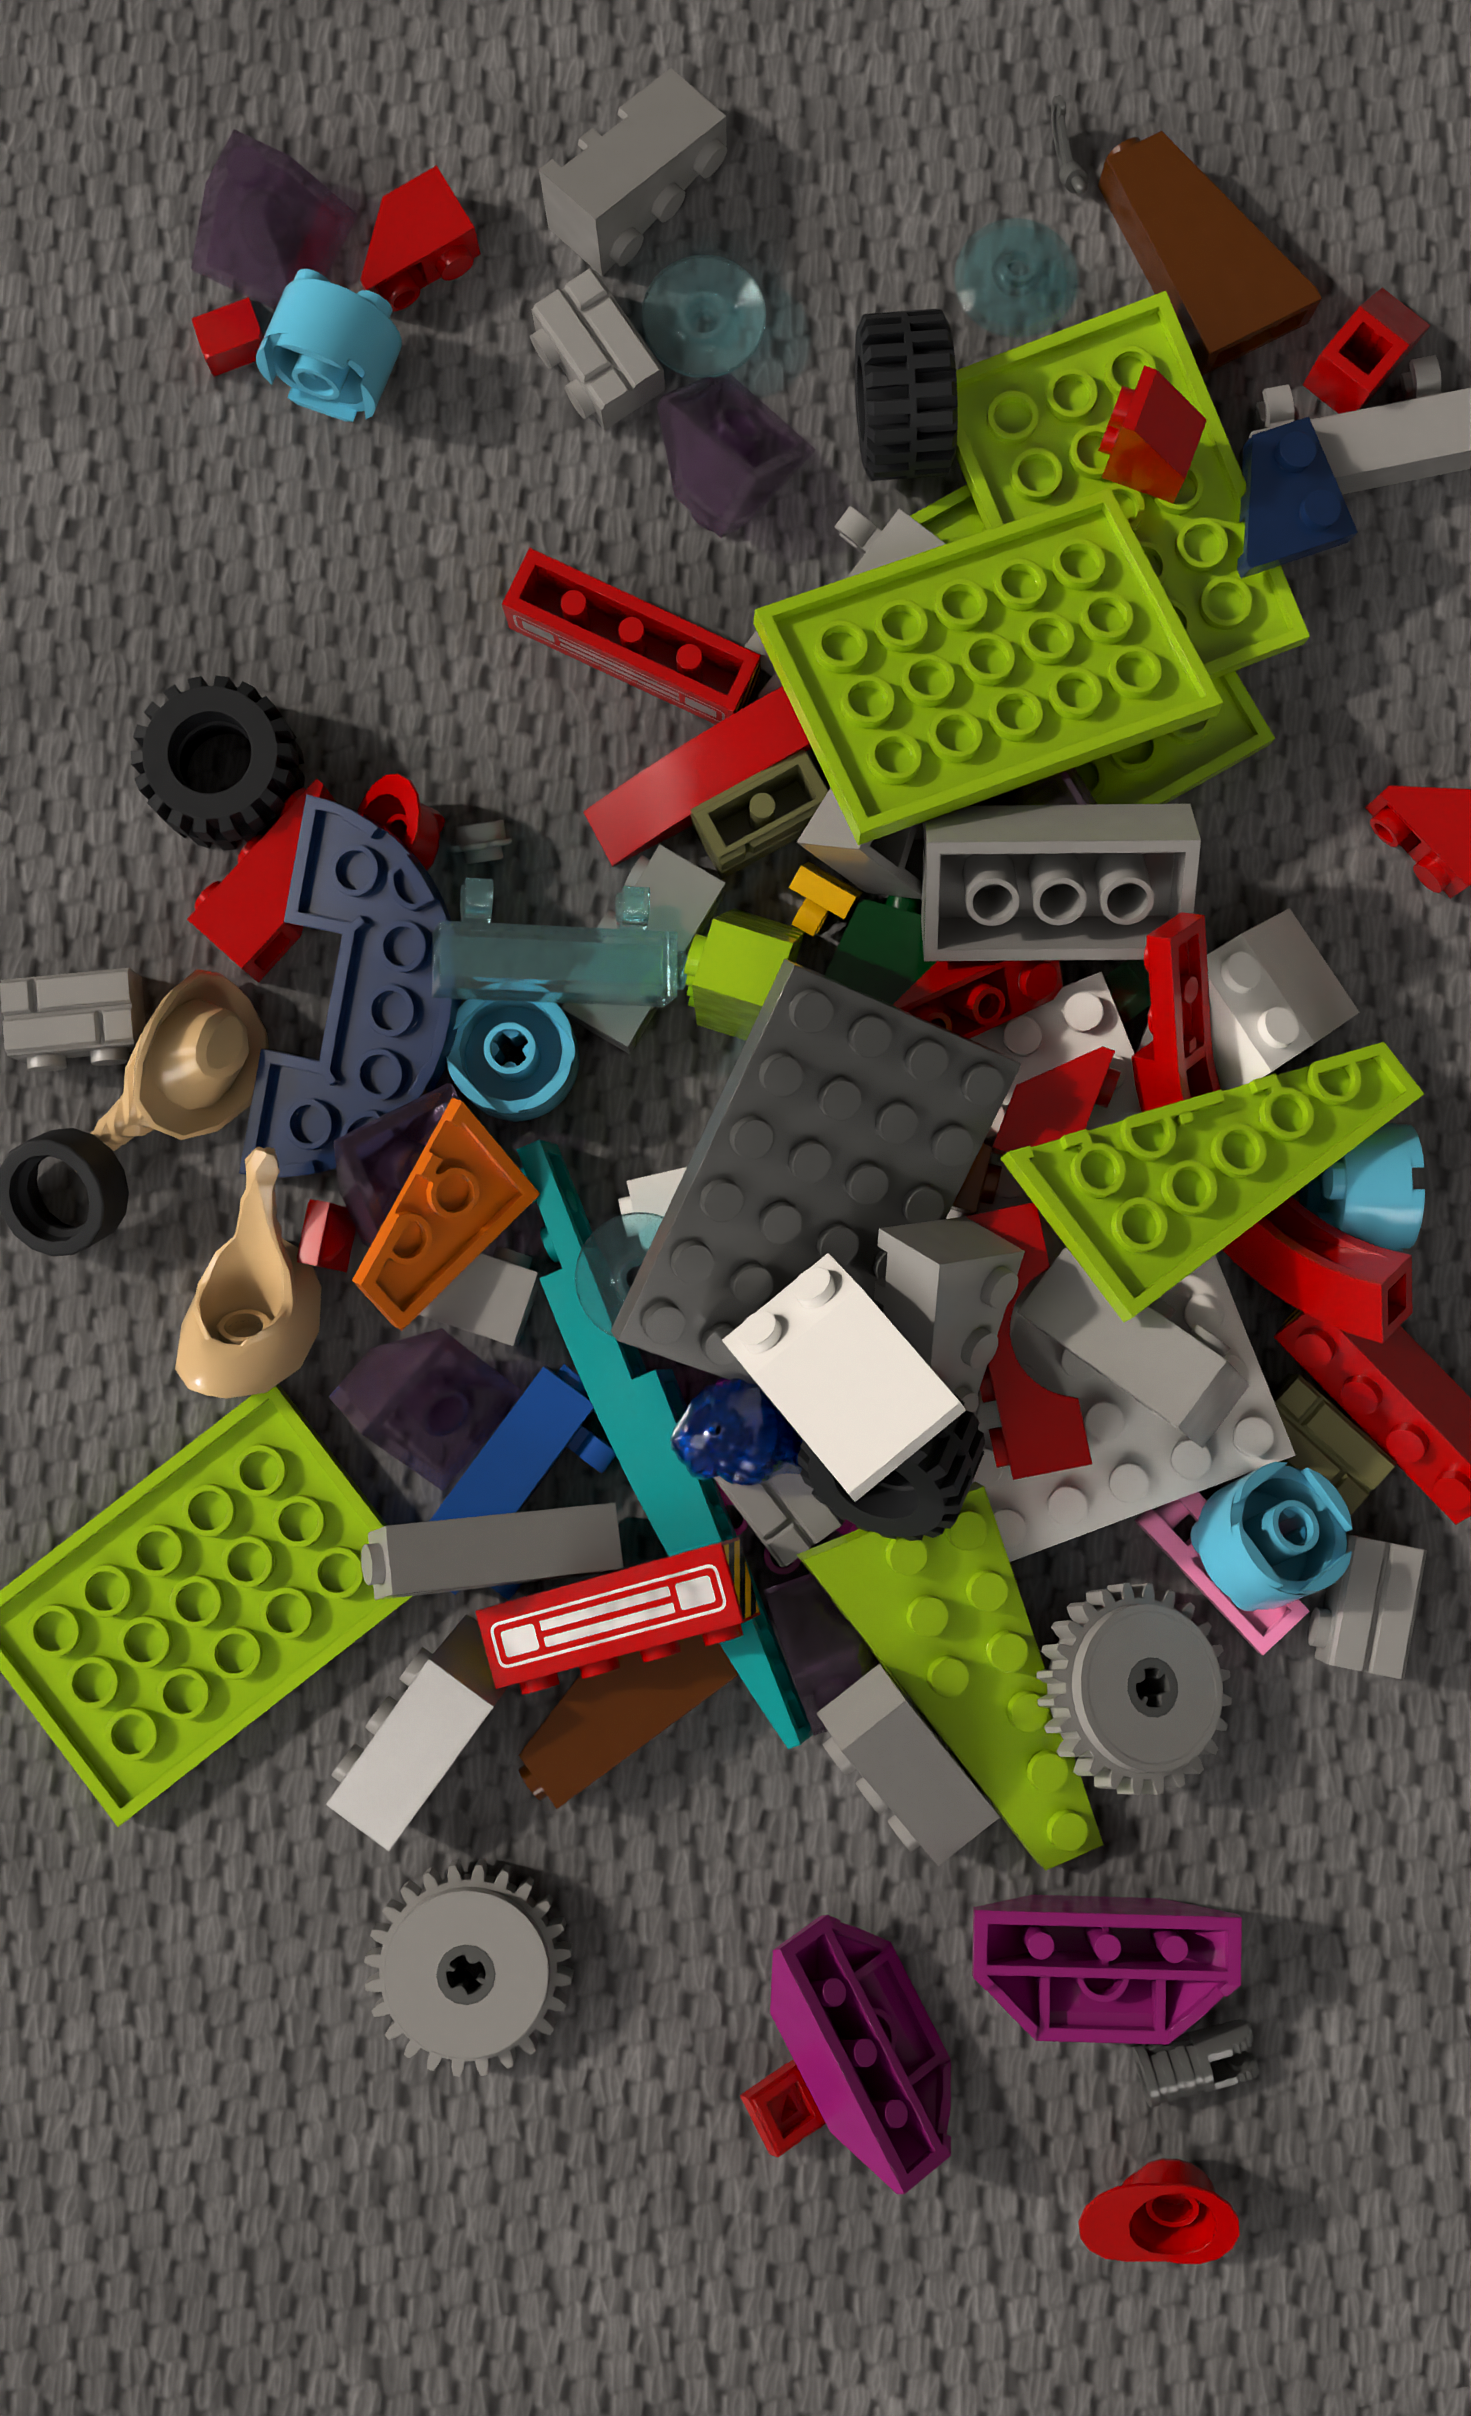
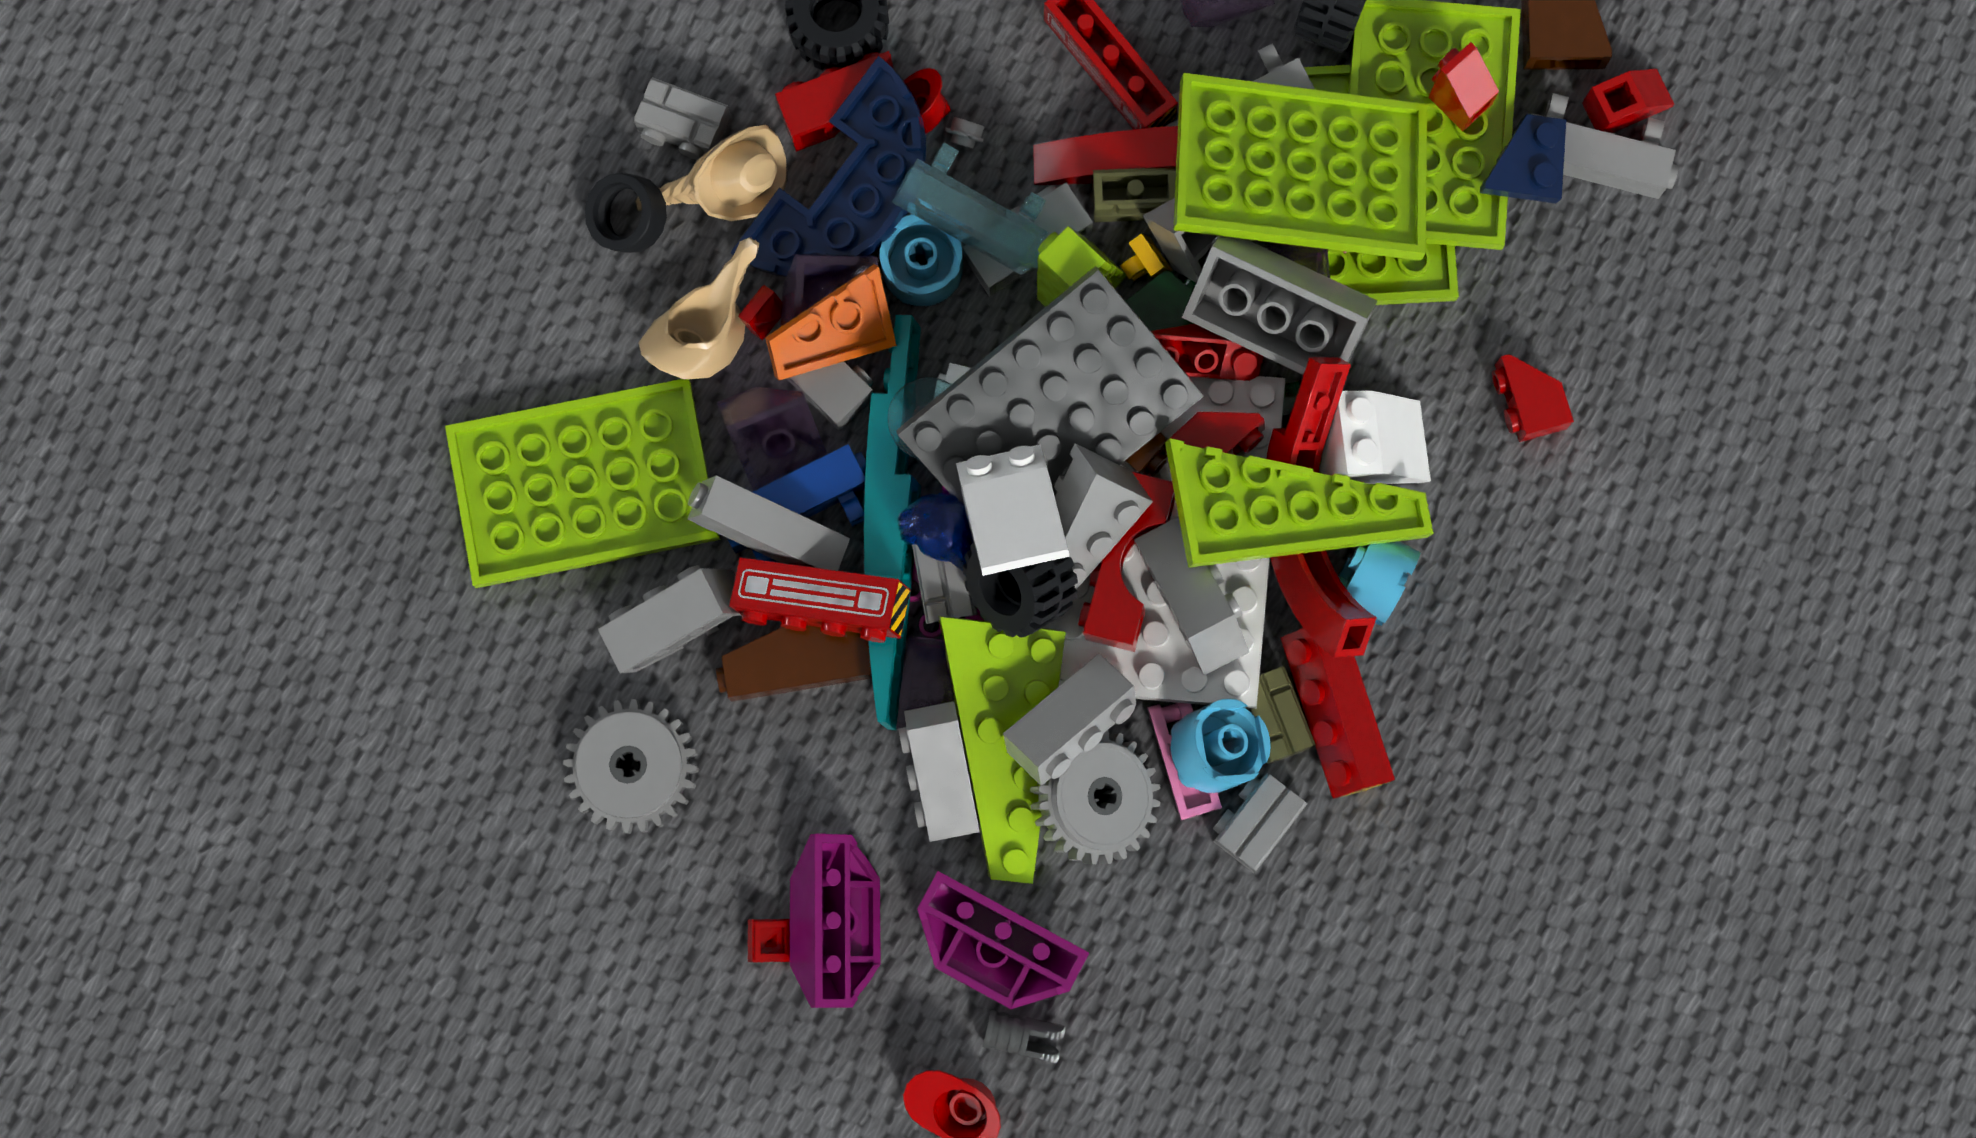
camera: 30 degrees right, 5 degrees down
(1060, 1613) = (1070, 720): none -> light grey brick

